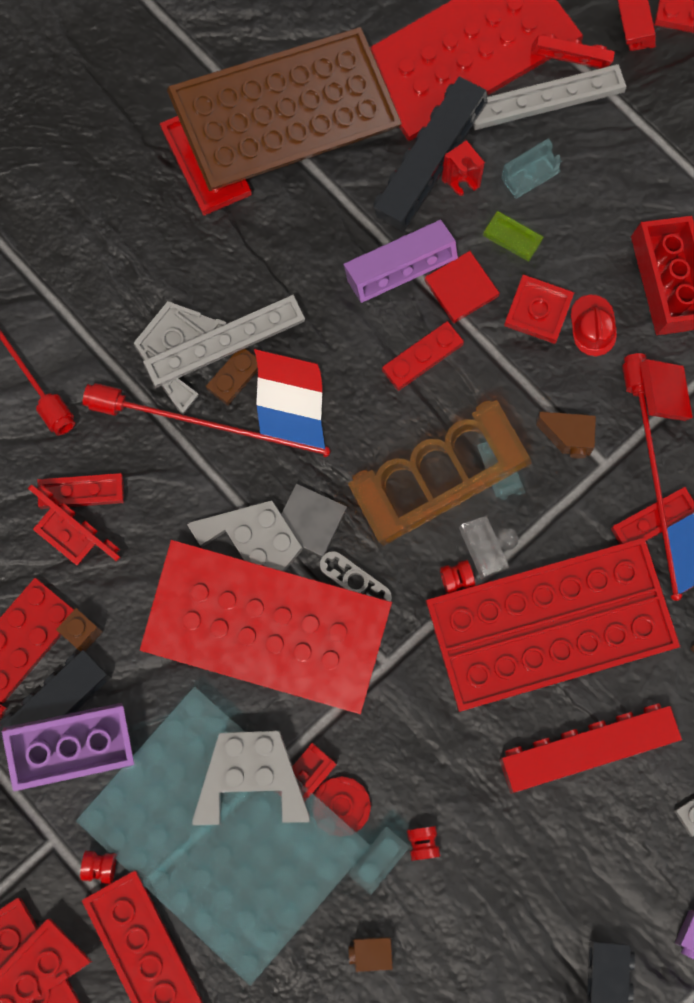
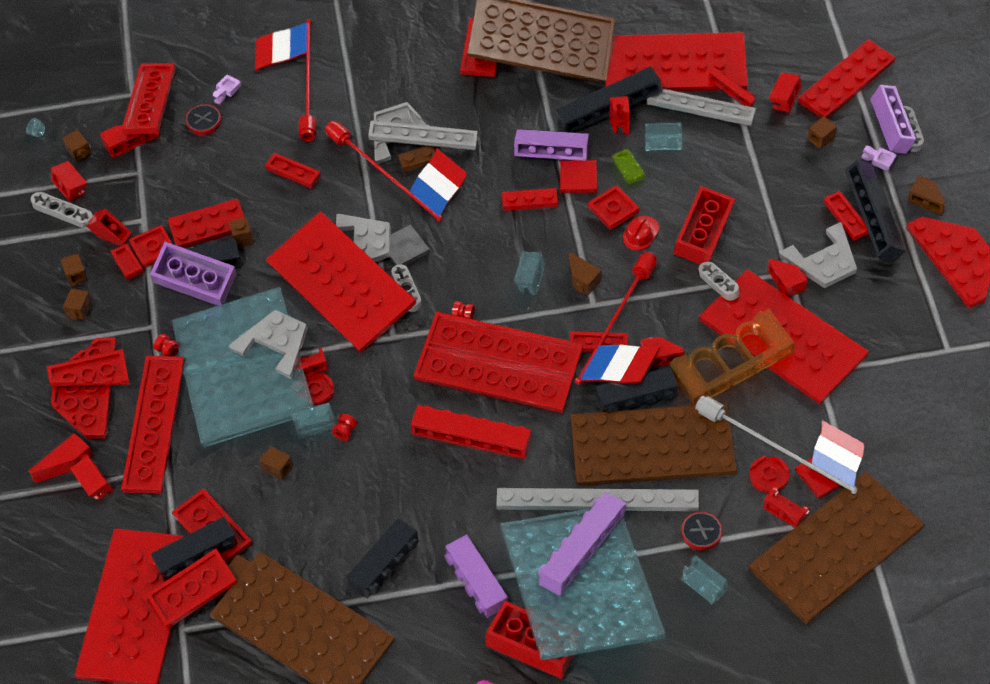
camera: 35 degrees right, 20 degrees down
(67, 534) = (269, 185): red bracket -> none
(371, 487) = (448, 245): clear orange fence -> none
(486, 547) = (490, 306): clear plate -> none
(666, 390) = (653, 279): red tile -> none

